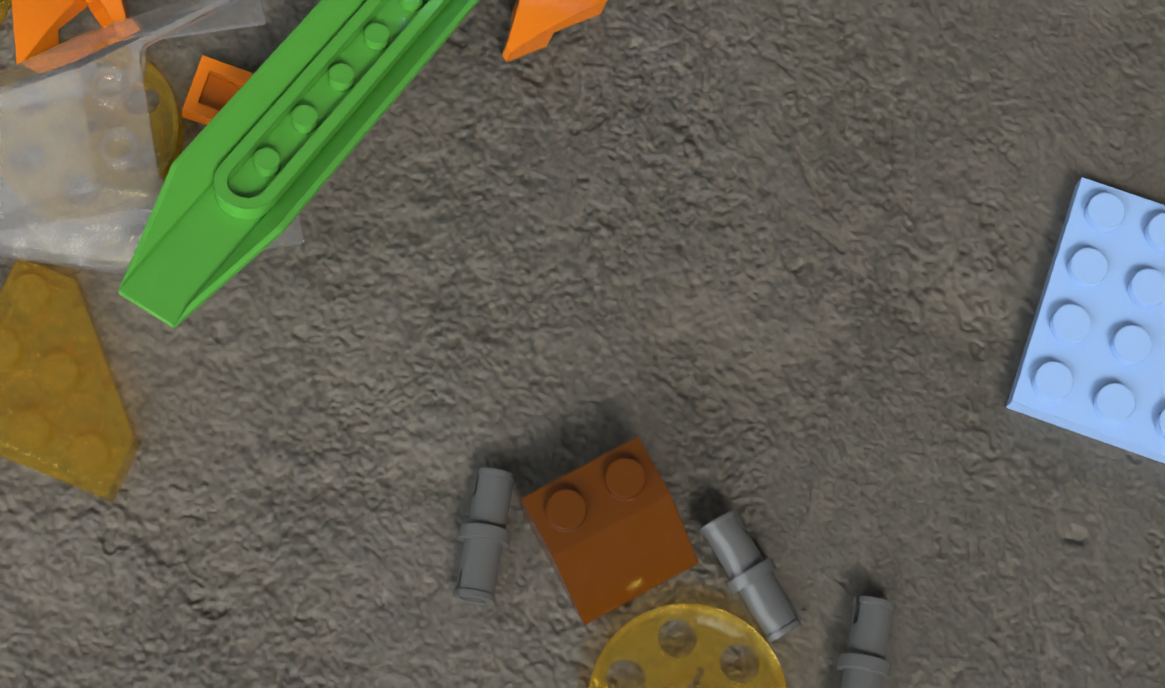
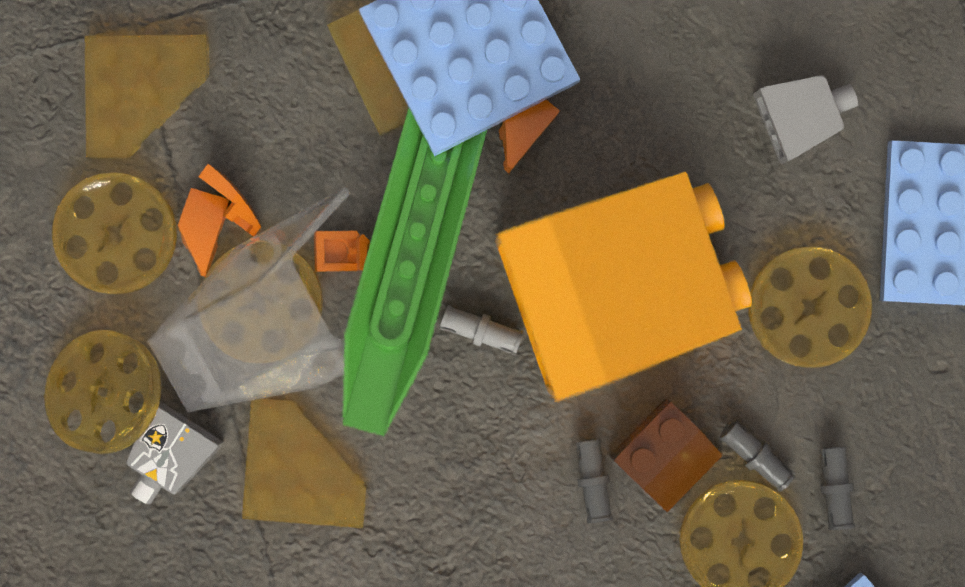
camera: 20 degrees left, 15 degrees up
(391, 263) = (481, 330): none -> light grey pin
(609, 225) = (622, 283): none -> light orange slope
(899, 349) = (829, 309): none -> clear yellow wedge
(958, 100) = (802, 113): none -> light grey torso

